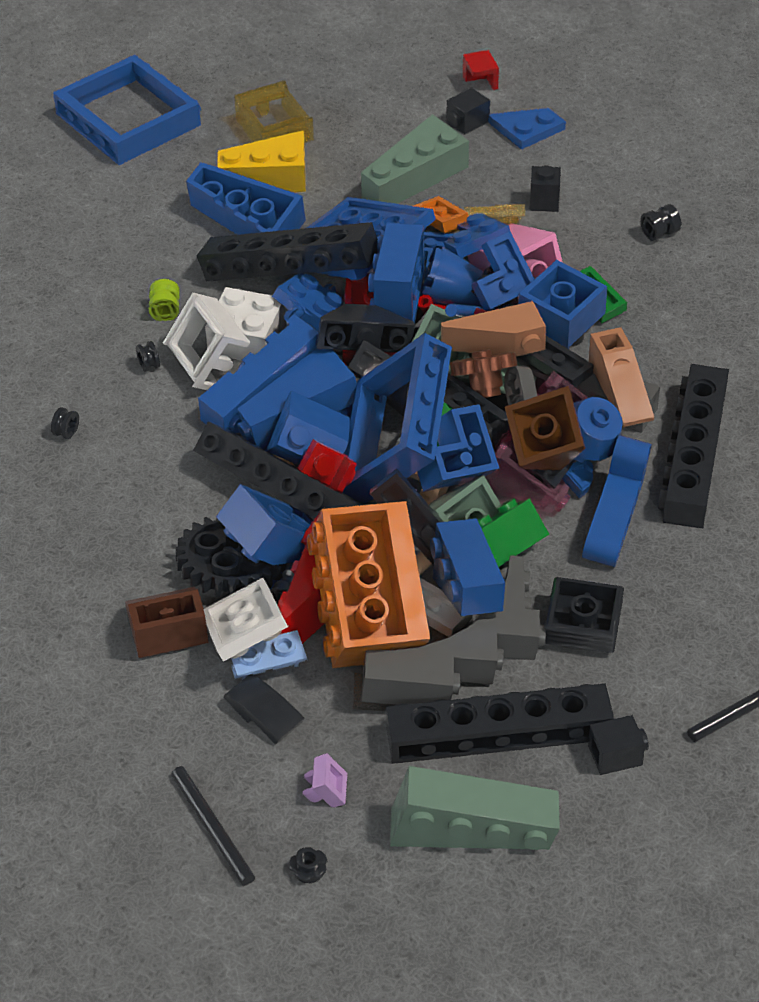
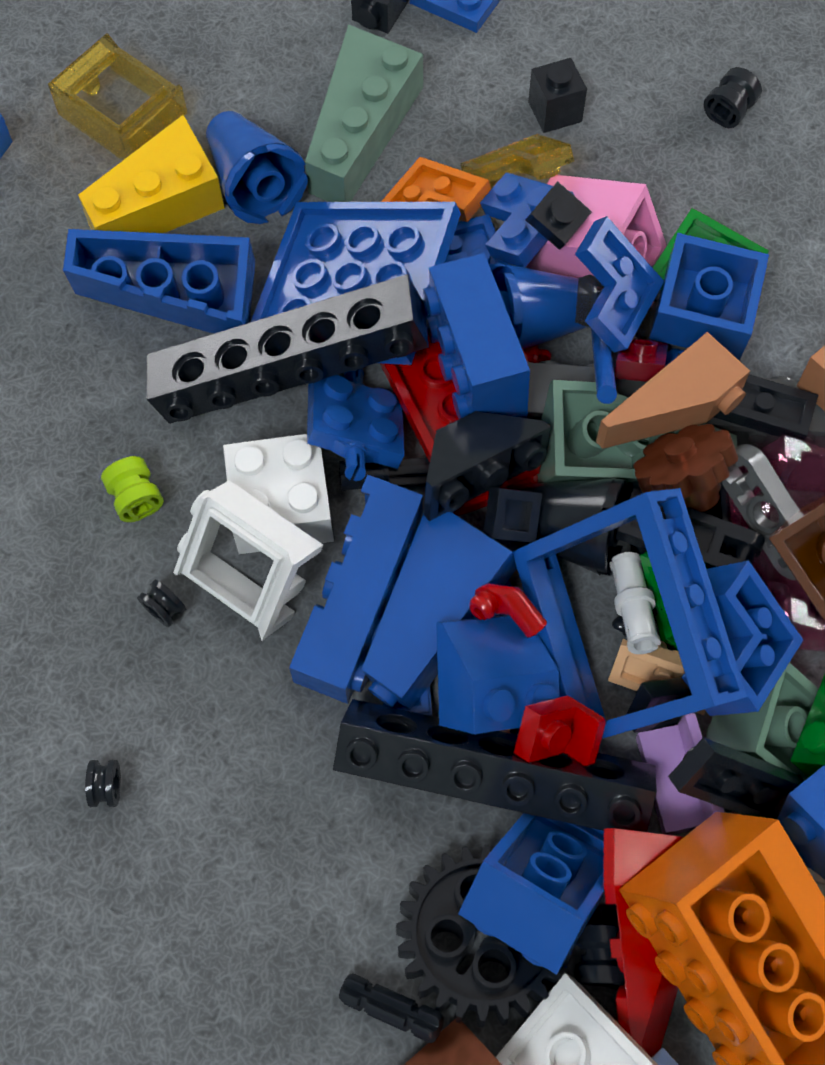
camera: 25 degrees left, 20 degrees up
(159, 569) = (391, 1008): none -> black axle
(331, 173) = (254, 168): none -> blue cone
(337, 397) = (507, 601): none -> red arm
(488, 229) = (558, 215): none -> black plate

